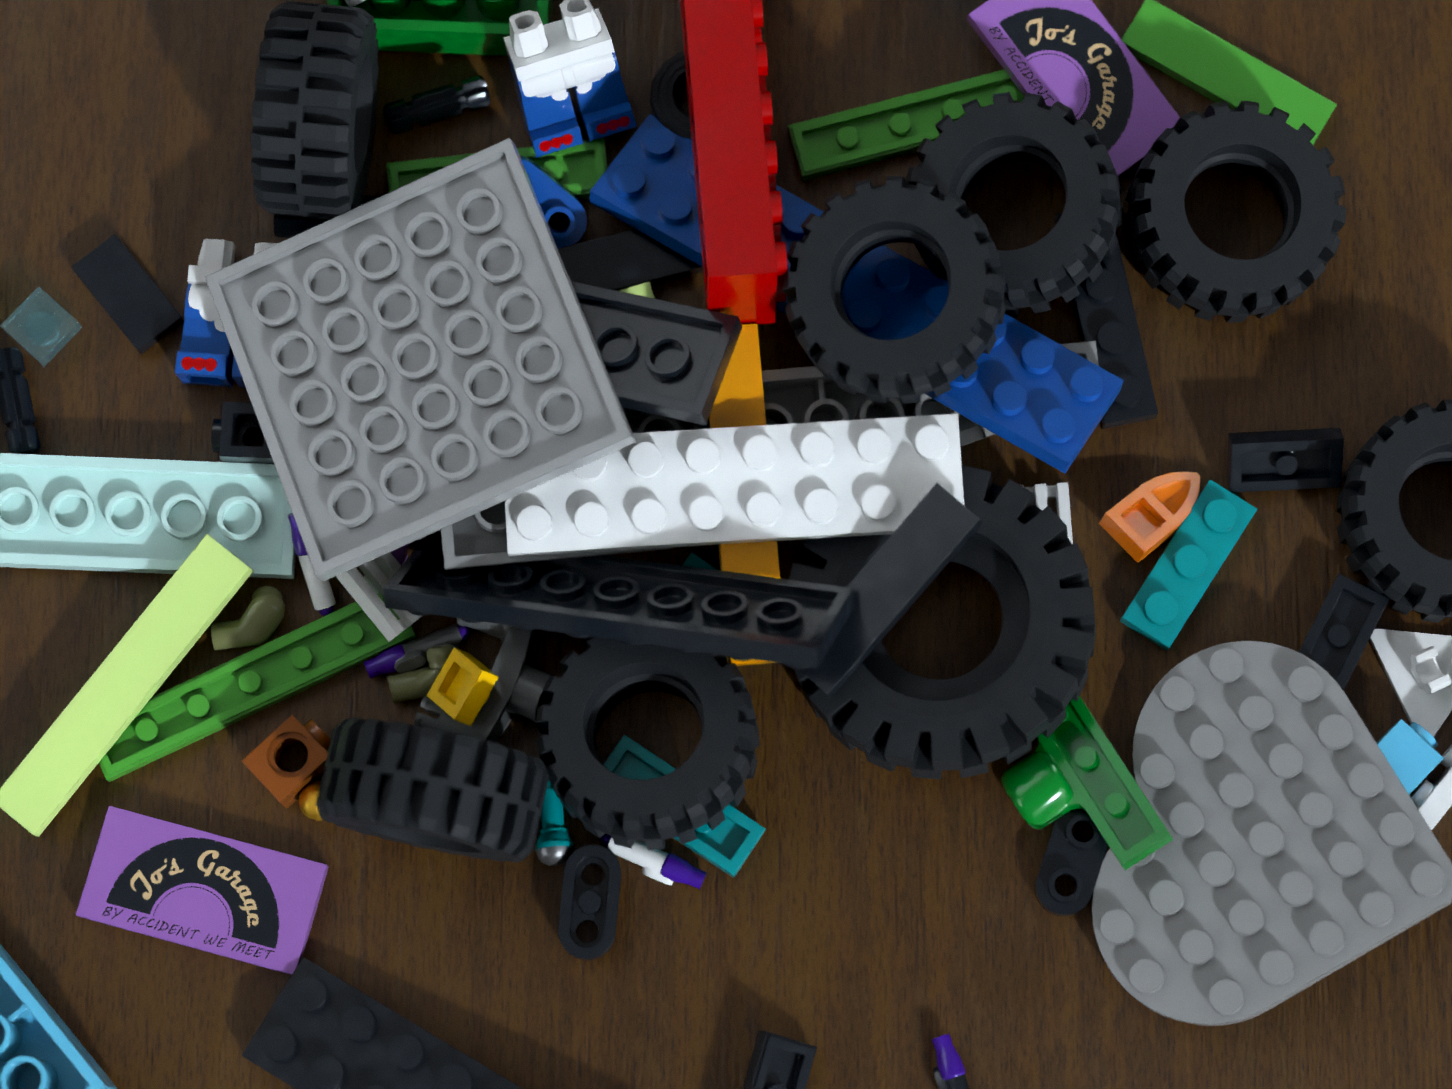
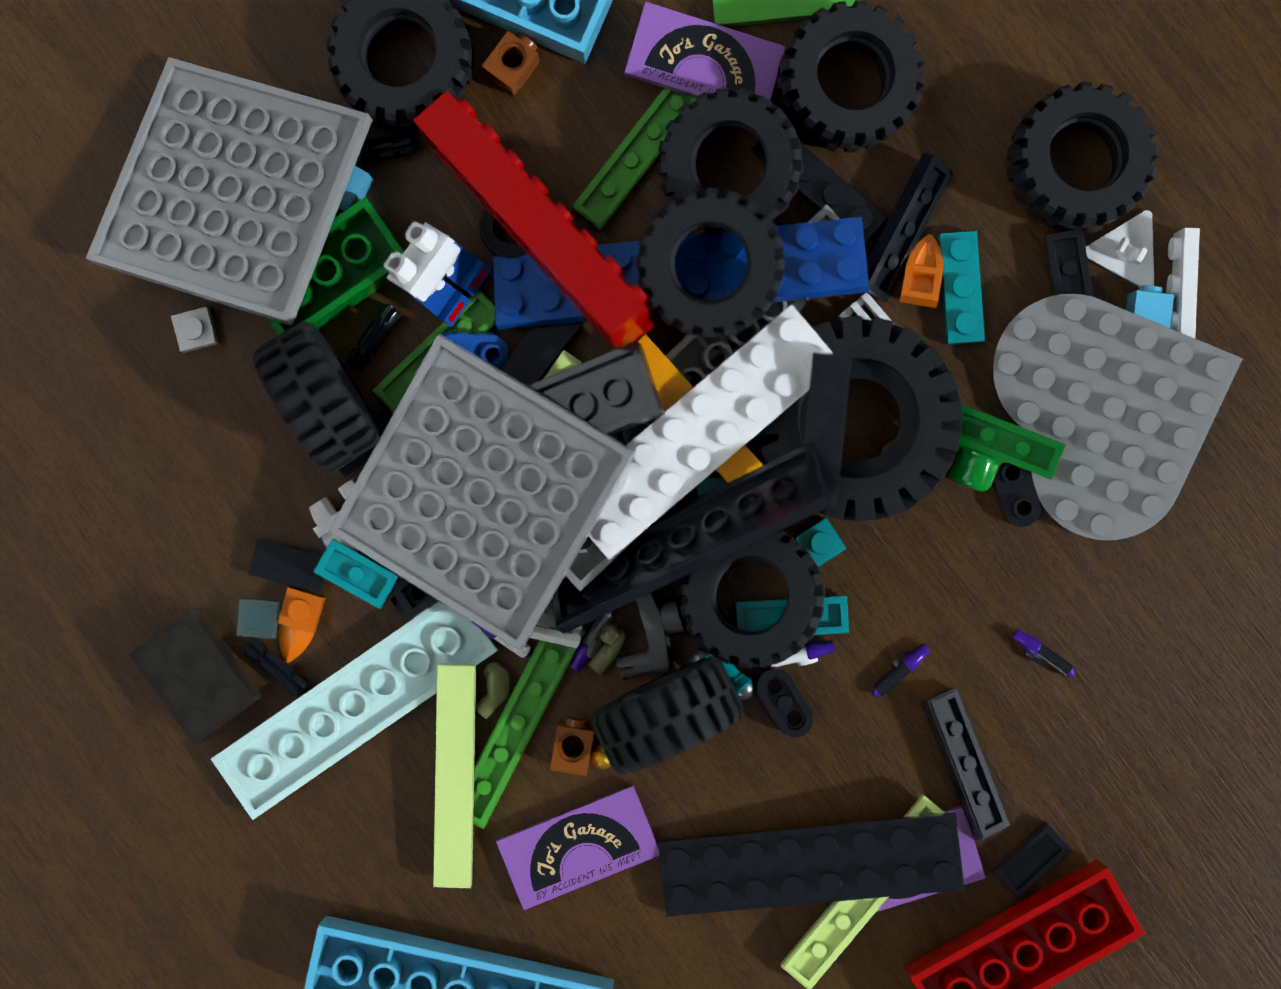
camera: 35 degrees left, 10 degrees up
(85, 368) = (298, 621): none -> orange plate
(198, 351) = (356, 573): none -> teal plate
(462, 686) = (635, 644): yellow plate -> none
(766, 971) = (900, 668): none -> piece
(784, 743) = (821, 542): none -> teal plate
(1171, 439) = (906, 225): none -> black plate
(1285, 460) = (972, 193): black plate -> none

